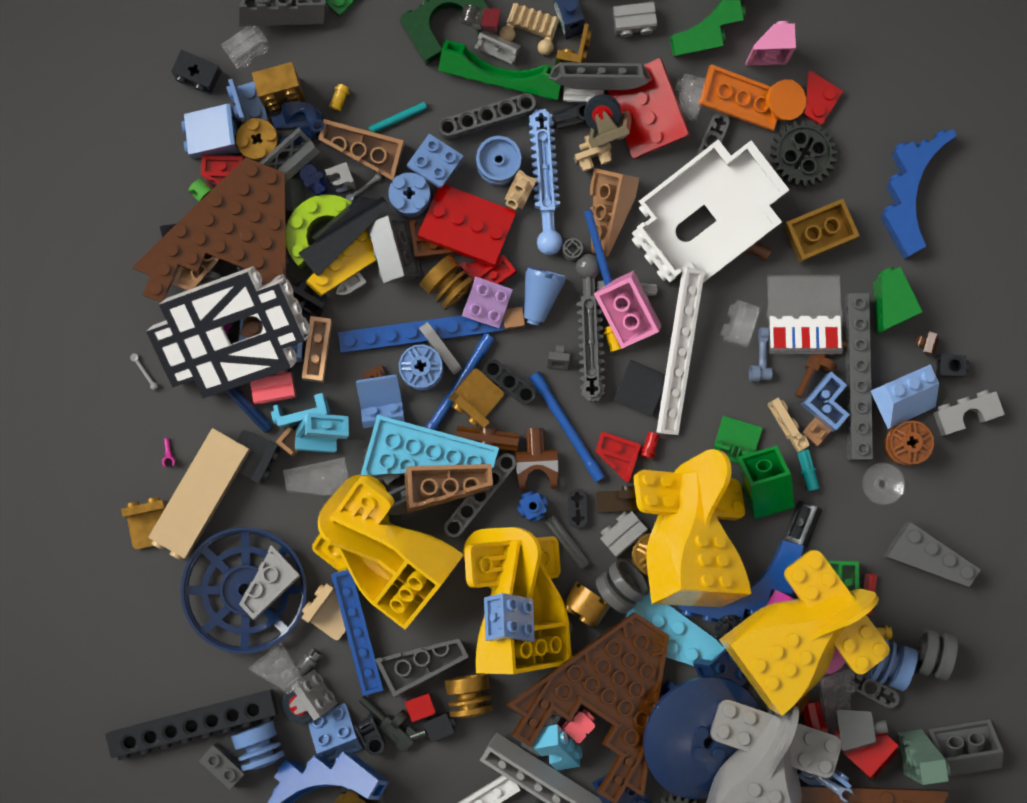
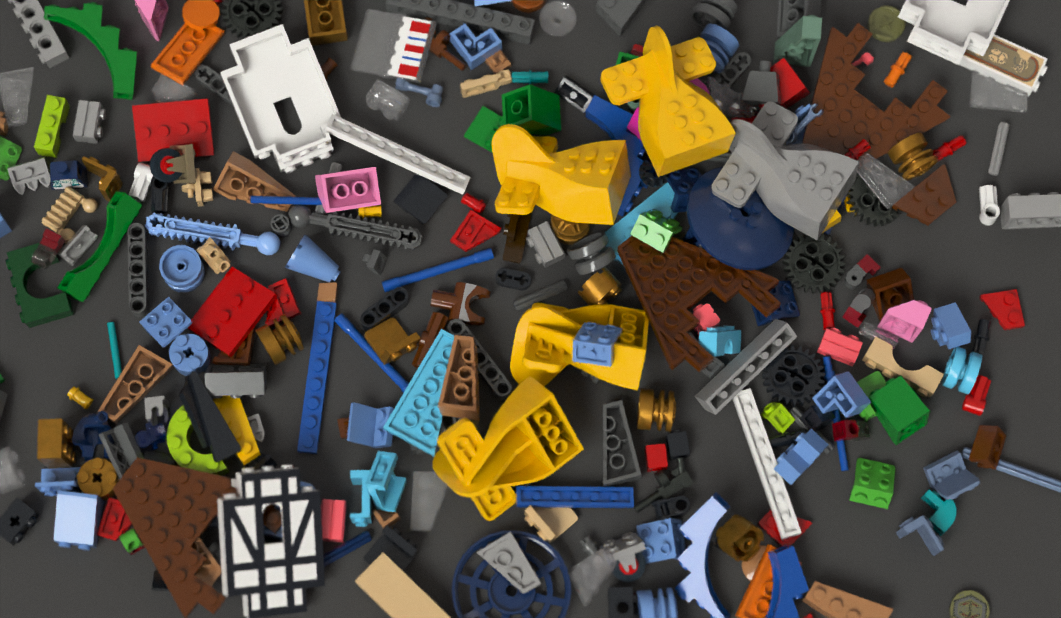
camera: 75 degrees left, 10 degrees down
(317, 349) = (311, 471): light nougat brick -> none
(377, 177) = (164, 381): light grey hinge -> none
(432, 372) = (360, 386): medium blue wheel -> none
(440, 347) = (337, 360): light grey beam -> none
(487, 302) = (307, 308): lavender hinge -> none
(524, 509) = (501, 322): blue brick -> none
(600, 75) = (132, 158): dark grey brick -> none
(666, 649) = (655, 229): none -> bracket

